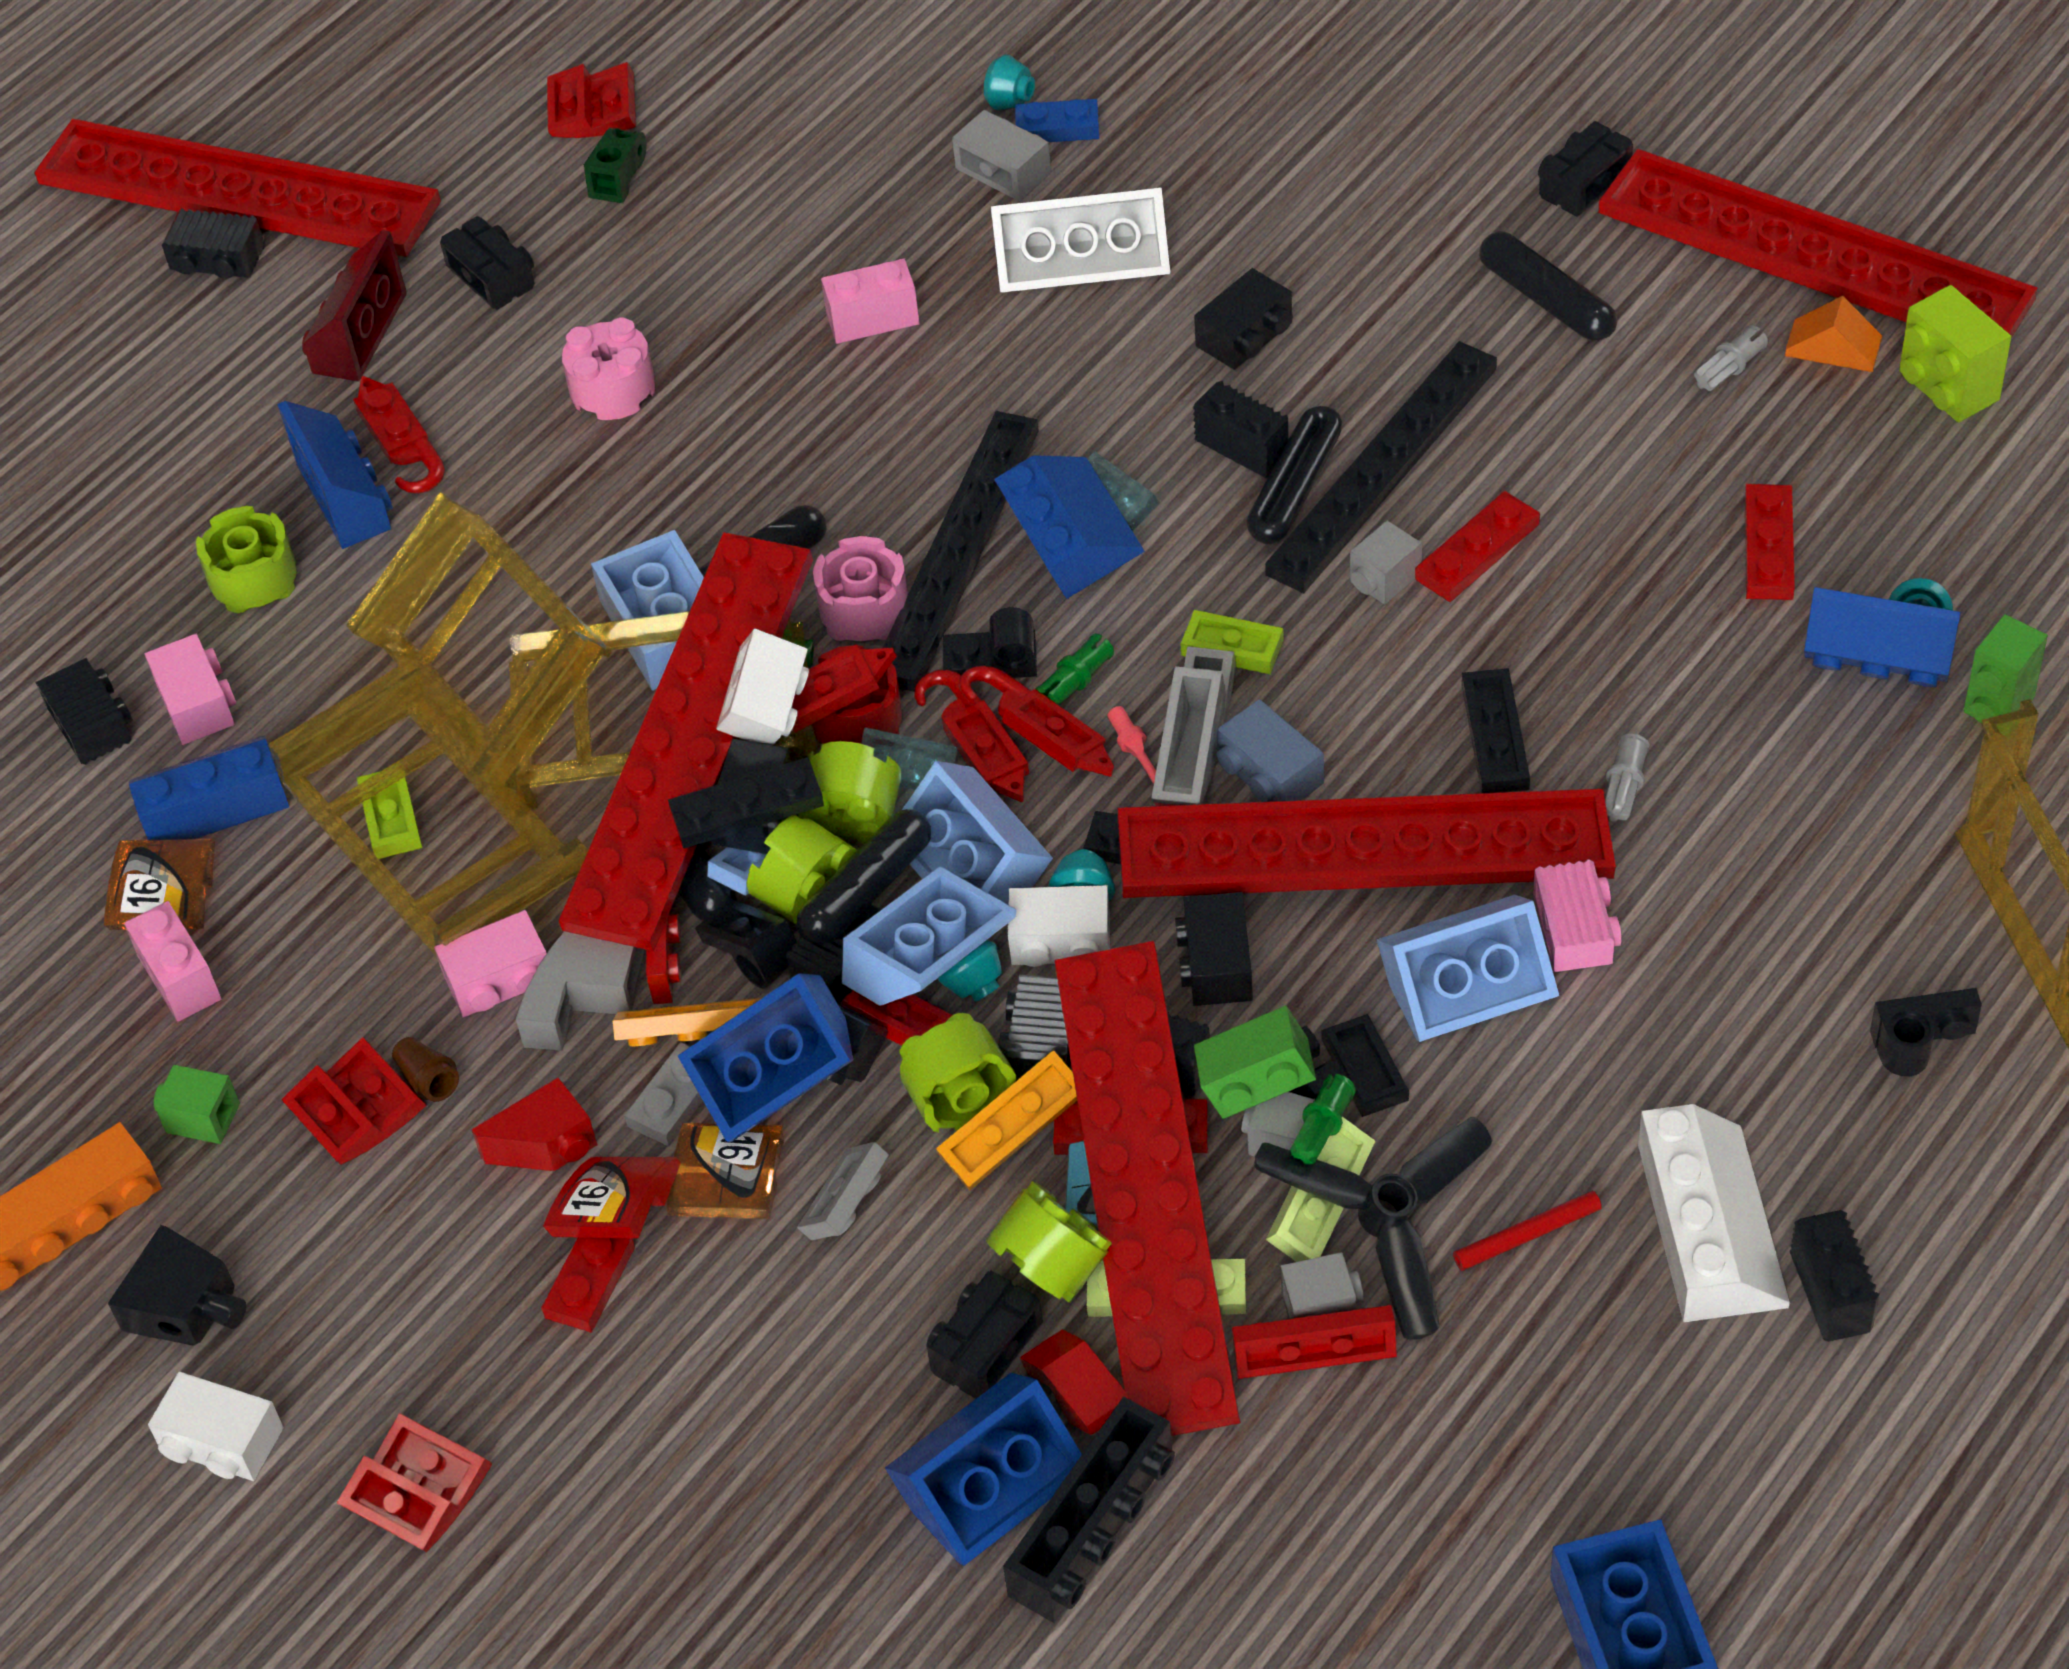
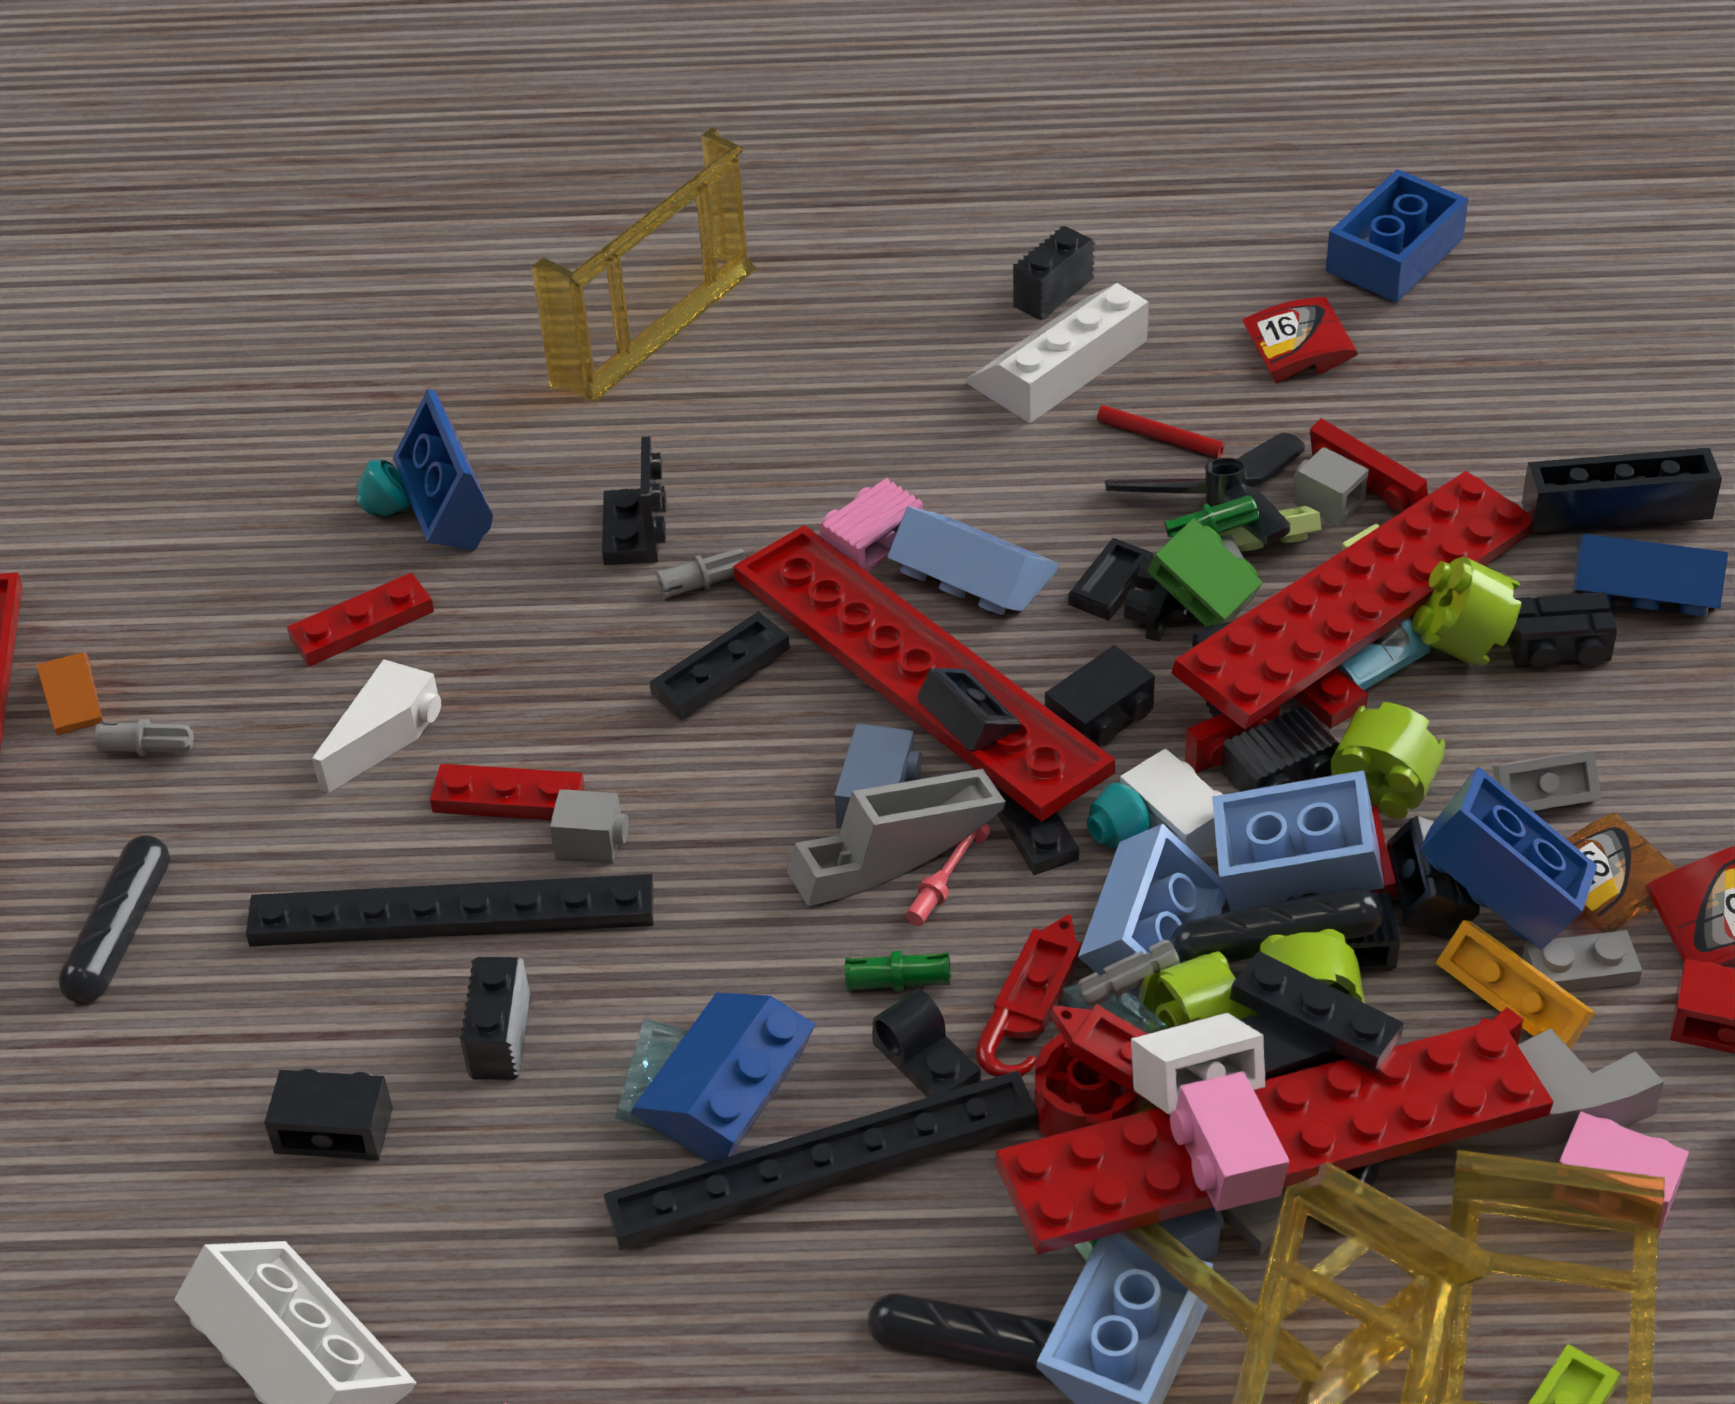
camera: 130 degrees left, 5 degrees down
(680, 655) = (1229, 1141): none -> bright pink brick
(752, 938) = (1403, 987): black plate -> none
(860, 589) = (951, 1180): bright pink brick -> none
(913, 763) = (1127, 973): none -> light grey axle
(1010, 1121) = (1339, 700): light orange plate -> none
(1042, 722) = (978, 952): red plate -> none
(1077, 1379) = (1537, 558): red slope -> none
(1253, 643) = (766, 882): lime plate -> none
(1267, 825) = (966, 707): none -> black slope
(1294, 474) = (540, 945): black piece -> none
(1560, 1436) = (1298, 336): none -> red slope
(1623, 499) = (378, 723): none -> white slope
(1733, 758) = (632, 518): none -> black bracket
(1920, 1022) = (811, 329): black plate -> none
(1954, 353) = (65, 574): lime brick -> none
(2005, 669) = (444, 375): bright green brick -> none

